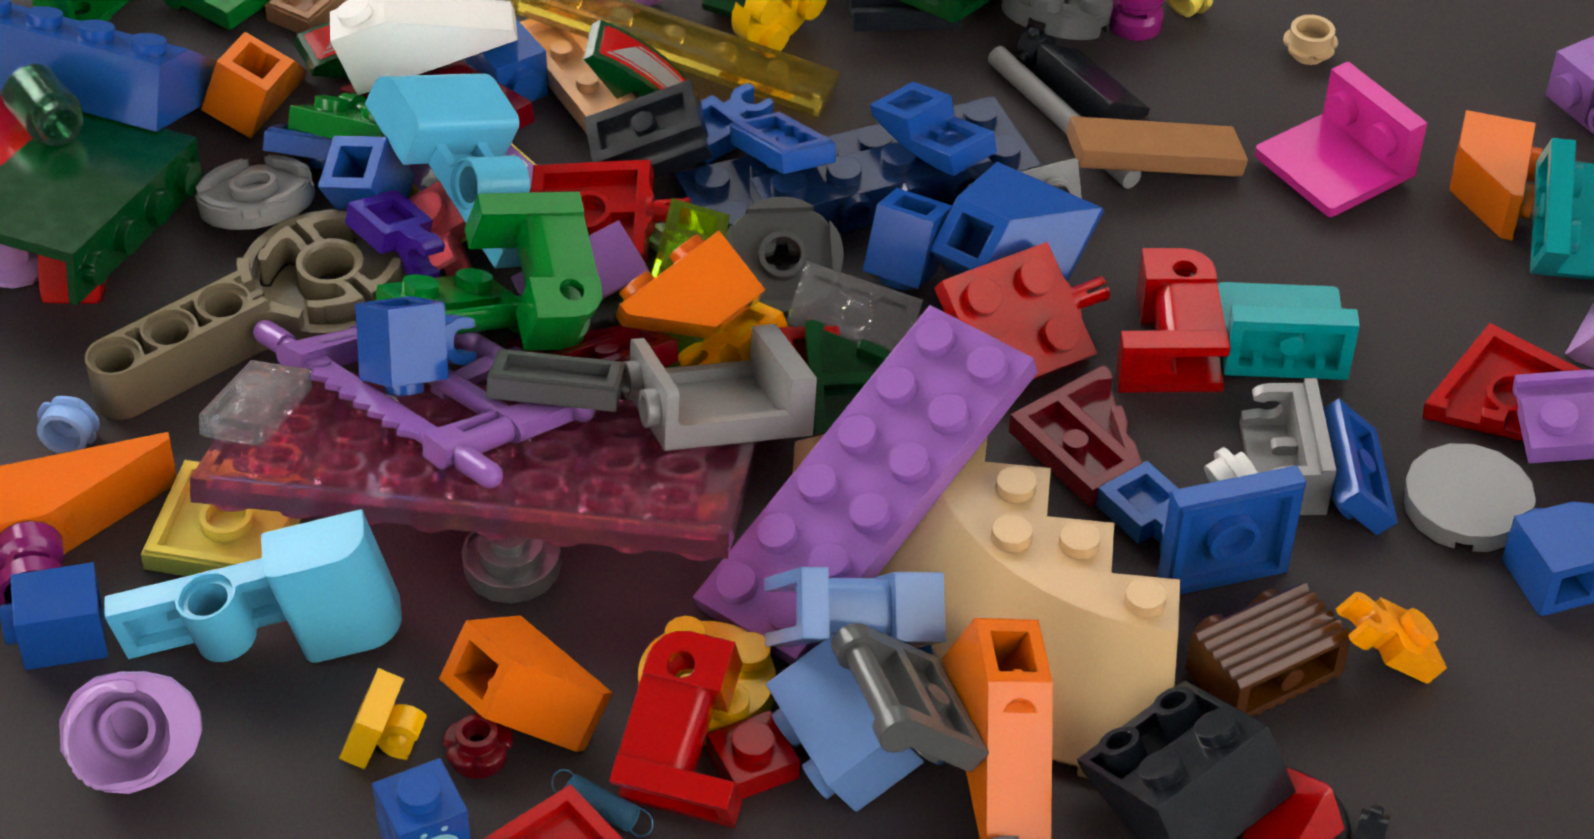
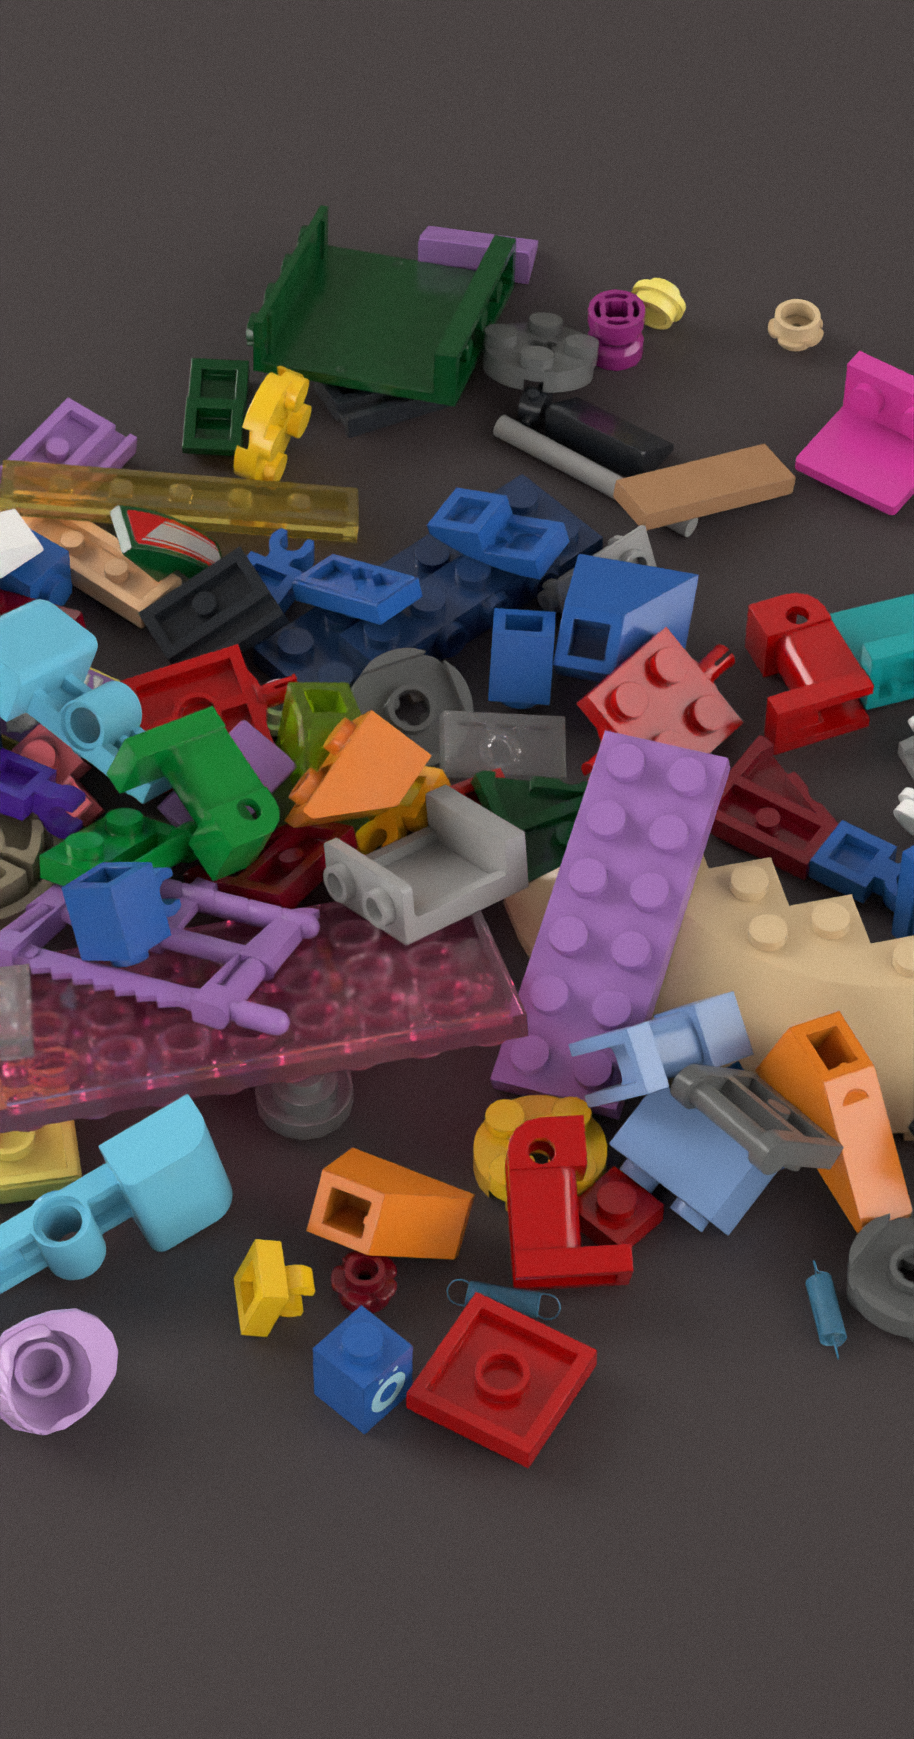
camera: 20 degrees left, 5 degrees up
(556, 380) = (276, 906): dark grey tile -> none

